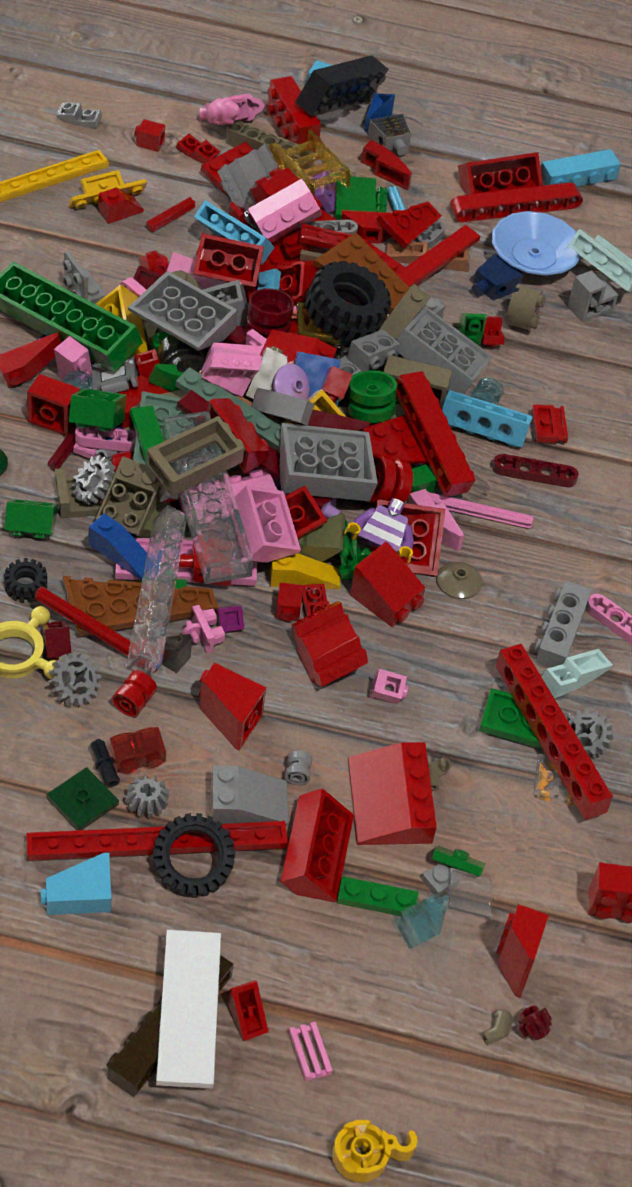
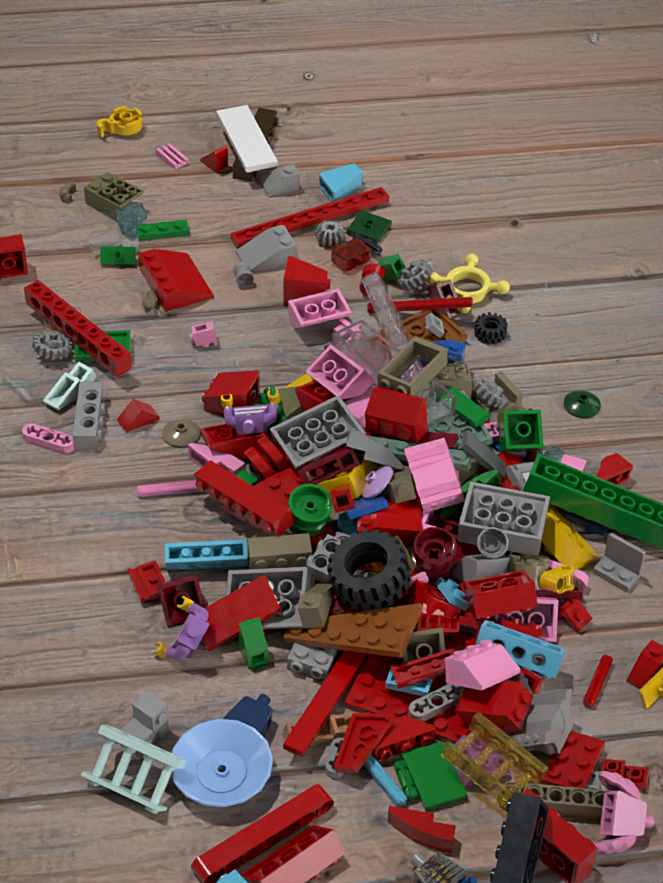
camera: 165 degrees right, 5 degrees down
(30, 517) = (520, 367): green slope -> none
(50, 404) = (562, 434): red brick -> none
(101, 585) = (434, 325): none -> light grey plate
(101, 702) = (392, 266): none -> green brick
(155, 271) = (557, 579): none -> yellow piece
(157, 919) = (280, 180): none -> light grey slope
(162, 382) = (482, 453): none -> dark grey tile
(177, 651) = (364, 311): clear smoke slope -> none
(200, 825) = (283, 206): black tyre -> none
(213, 284) = (492, 542): none -> light grey hair
(236, 651) = (317, 308): none -> bright pink slope
(289, 602) = (298, 365): red brick -> none
(314, 598) = (278, 375): red slope -> none
(317, 846) = (211, 238): red slope -> none
(328, 644) = (254, 339): red slope -> none
(434, 972) = (110, 192): none -> olive slope
(478, 349) = (243, 604): none -> red tile
(488, 390) = (214, 579): clear light blue wheel -> none
(492, 332) = (231, 653): red bracket -> none
(503, 609) = (136, 415): none -> red slope
(520, 945) = (63, 205): red slope -> none
(522, 396) = (171, 593): none -> dark red slope
(525, 307) = (208, 680): dark tan brick -> none
(531, 344) = (189, 635): none -> medium lavender torso
(534, 473) = (147, 533): dark red beam -> none
(534, 1022) = (45, 192): dark red gear -> none

